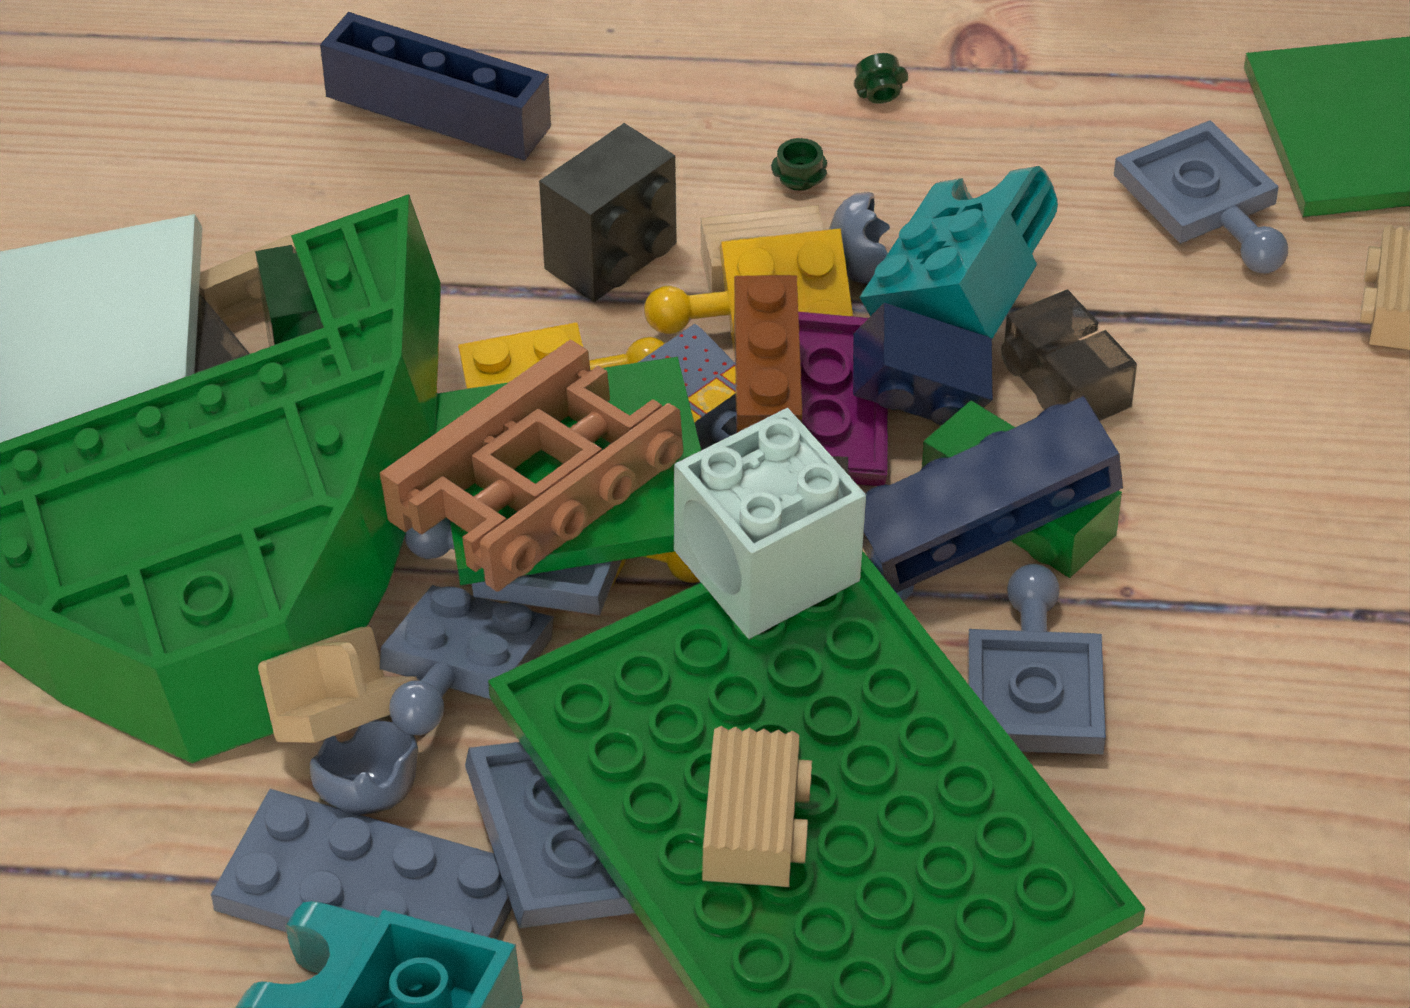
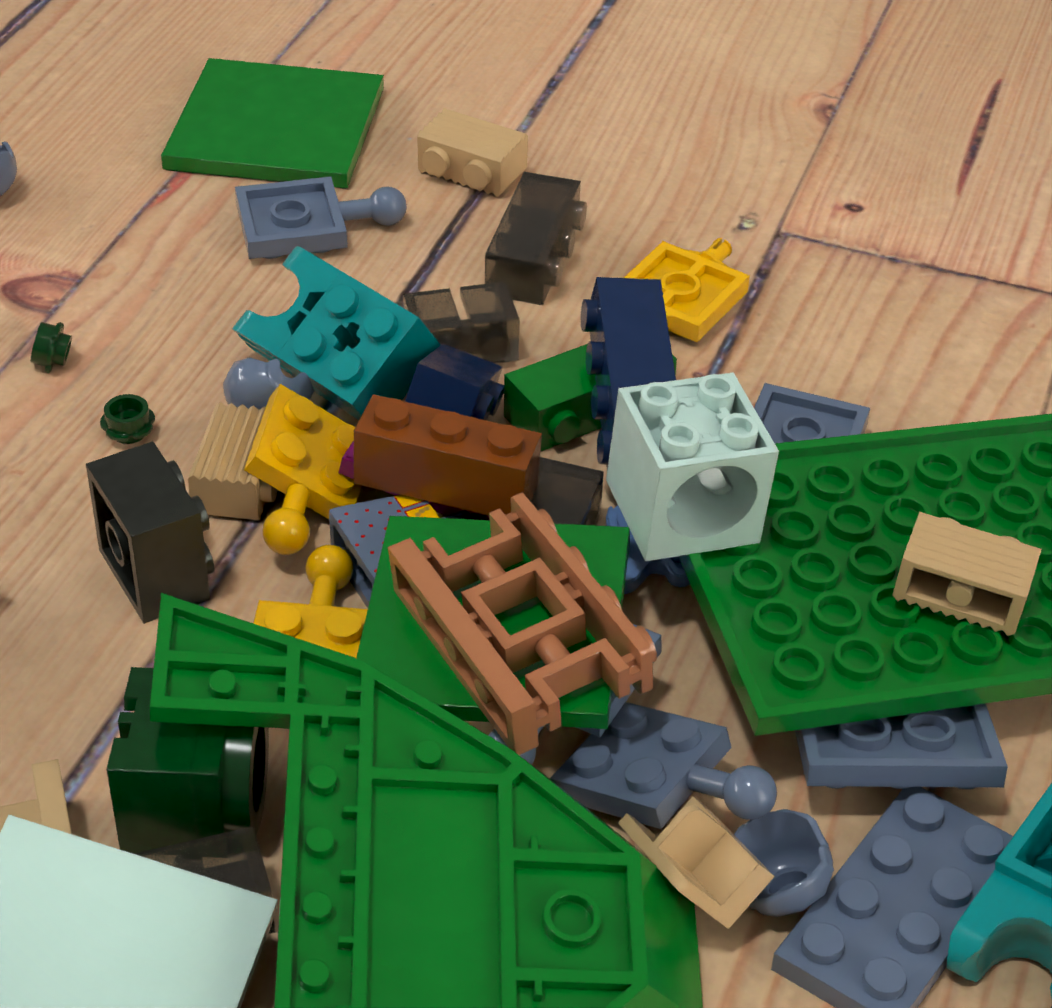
camera: 75 degrees left, 5 degrees down
(1252, 533) = (694, 285): none -> yellow plate
(1273, 381) = (535, 236): none -> clear smoke brick

